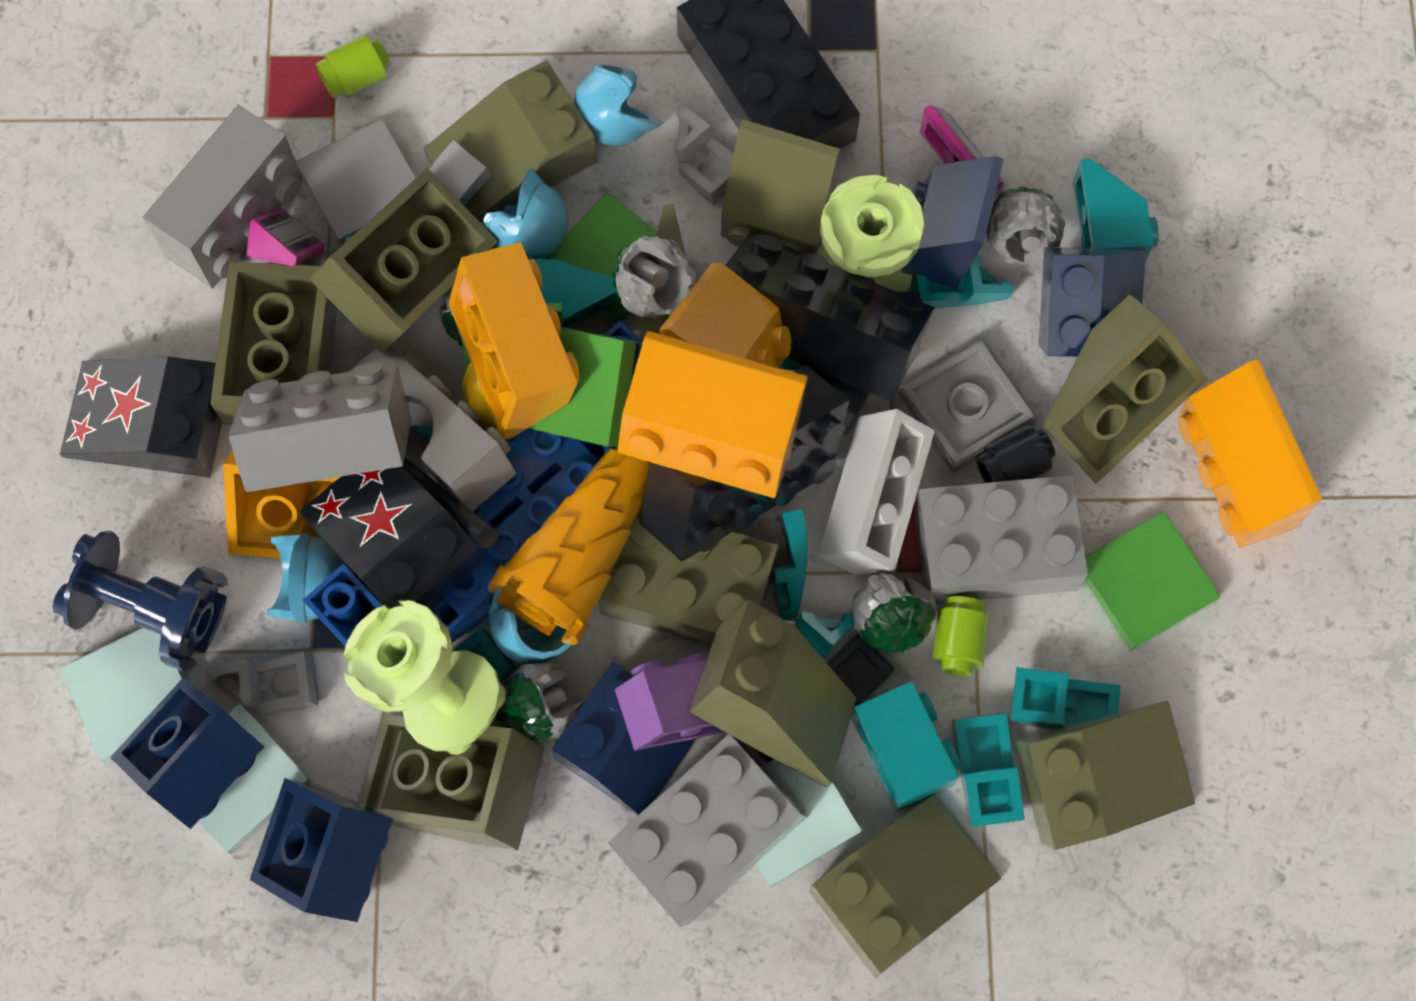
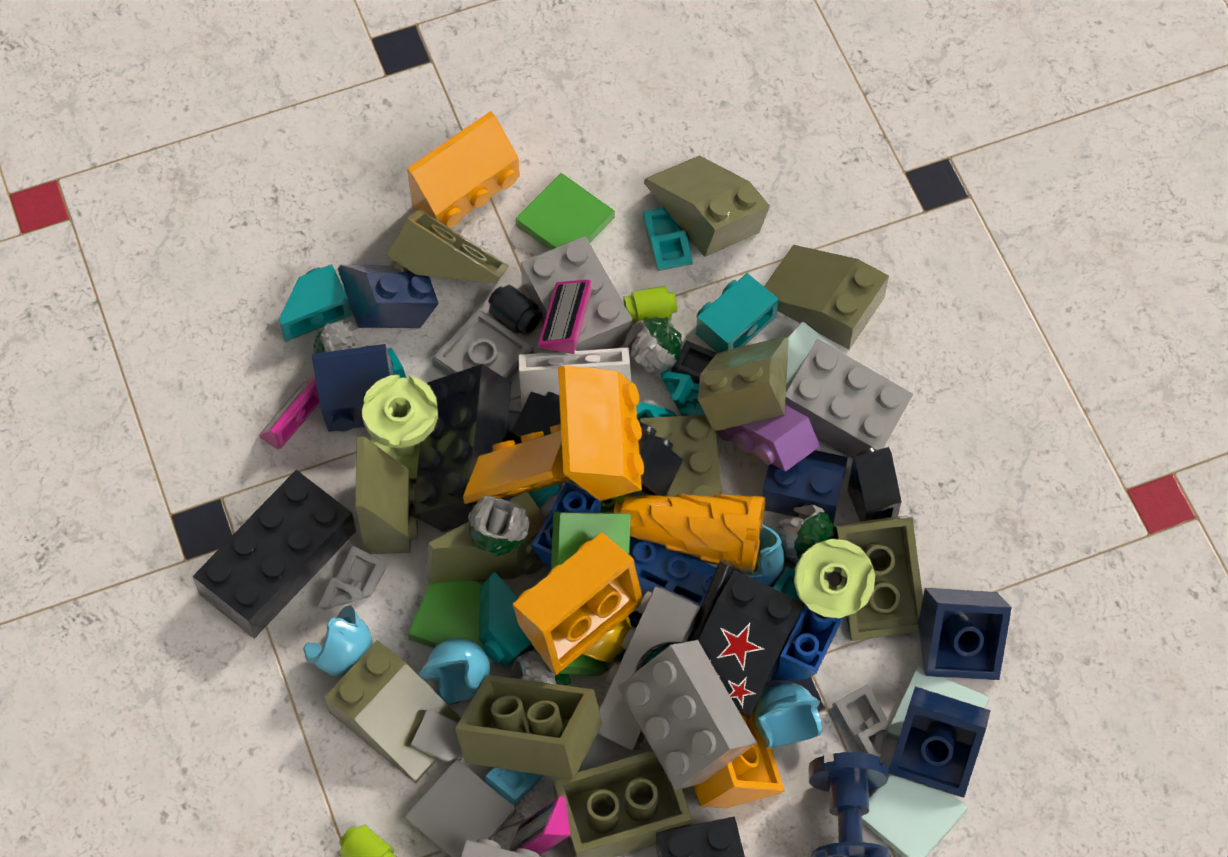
camera: 110 degrees left, 10 degrees down
(567, 818) = (874, 485): none -> black slope
(957, 494) = (566, 316): none -> slope
(988, 769) = (734, 262): teal slope -> none

